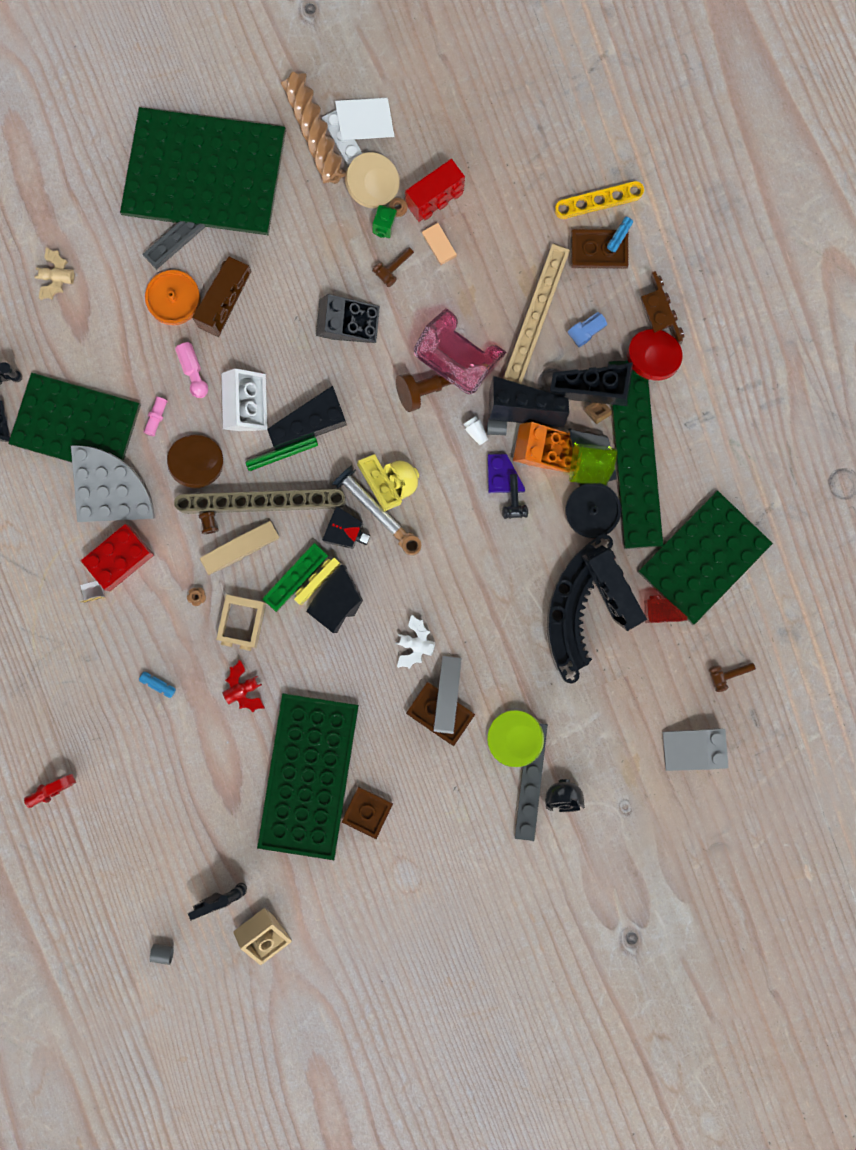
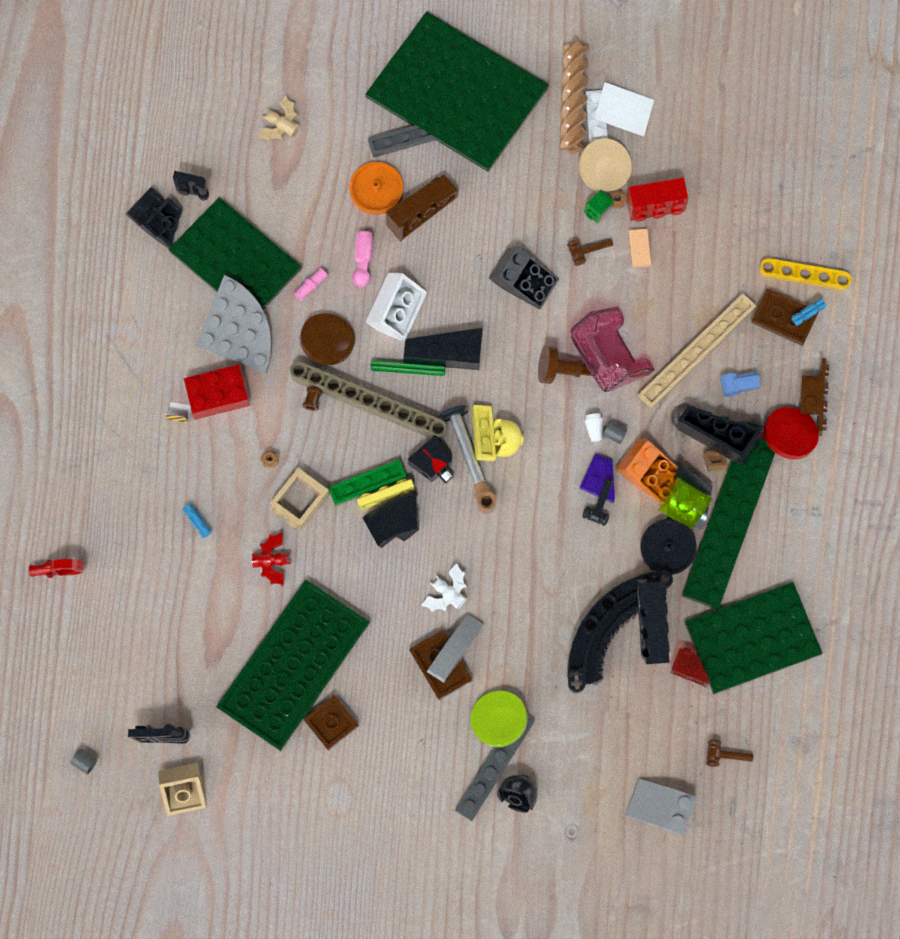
camera: 25 degrees right, 10 degrees down
(239, 548) = (329, 433): tan slope -> none
(526, 404) = (649, 422): black wedge -> none

